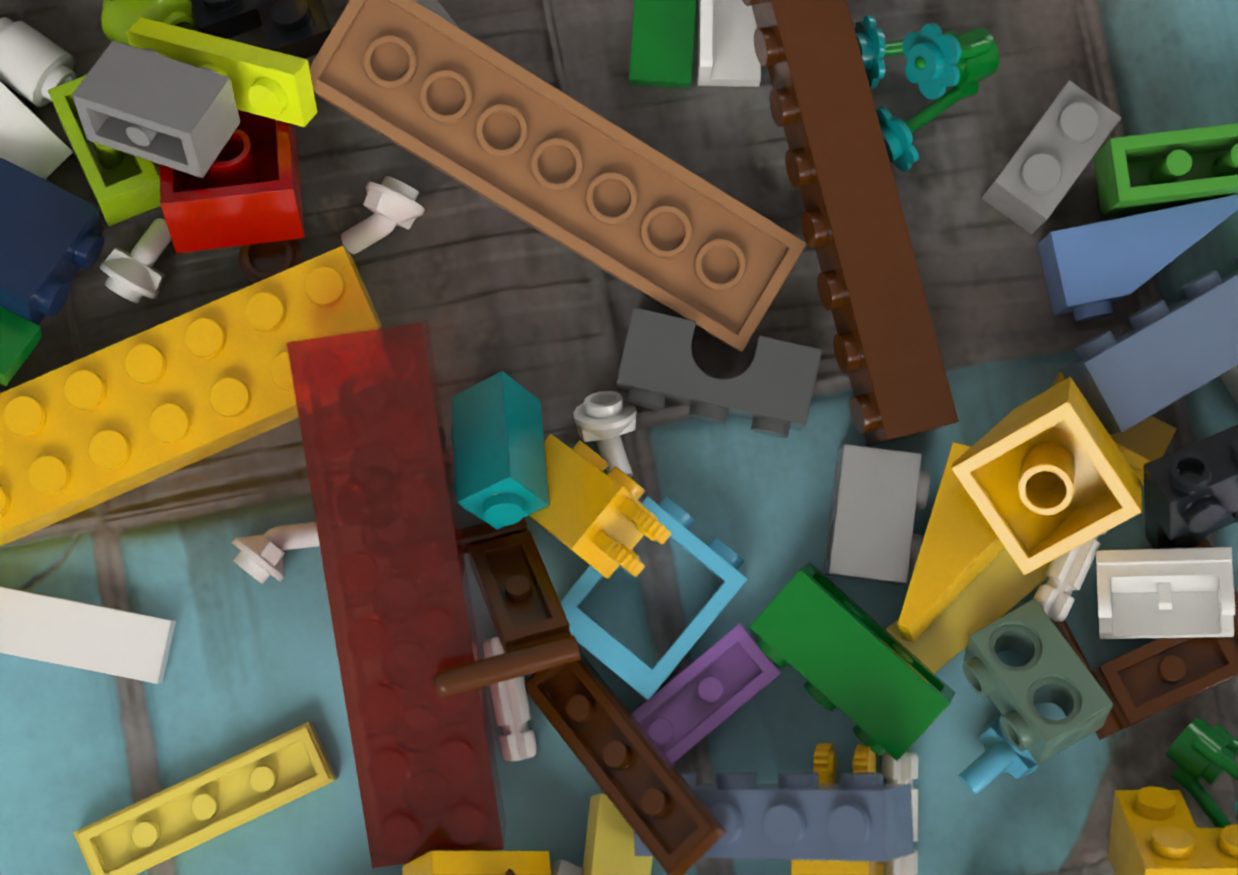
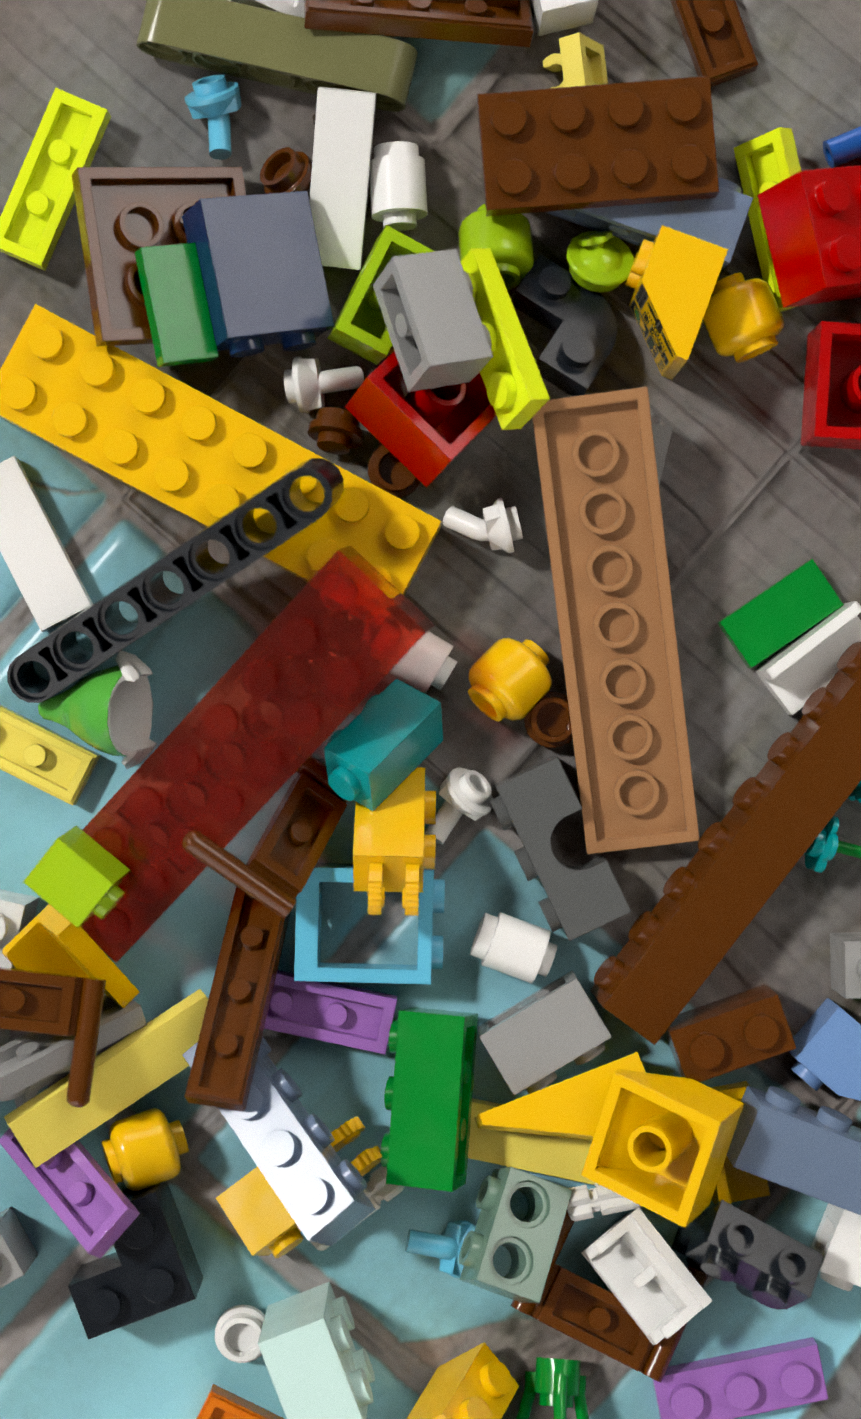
camera: 50 degrees right, 5 degrees up
(193, 280) = (335, 431): none -> reddish brown plate
(196, 553) = (192, 564): none -> black beam
(264, 553) = (186, 633): white plate -> none
(273, 677) = (109, 709): none -> hat
(394, 815) = (78, 877): none -> lime brick
(459, 361) = (426, 664): none -> white brick
(511, 711) = (214, 888): white axle -> none
(532, 299) = (509, 679): none -> yellow head
(597, 294) = (550, 721): none -> reddish brown plate
(774, 482) = (513, 947): none -> white brick
(1001, 349) = (729, 1034): none -> reddish brown brick

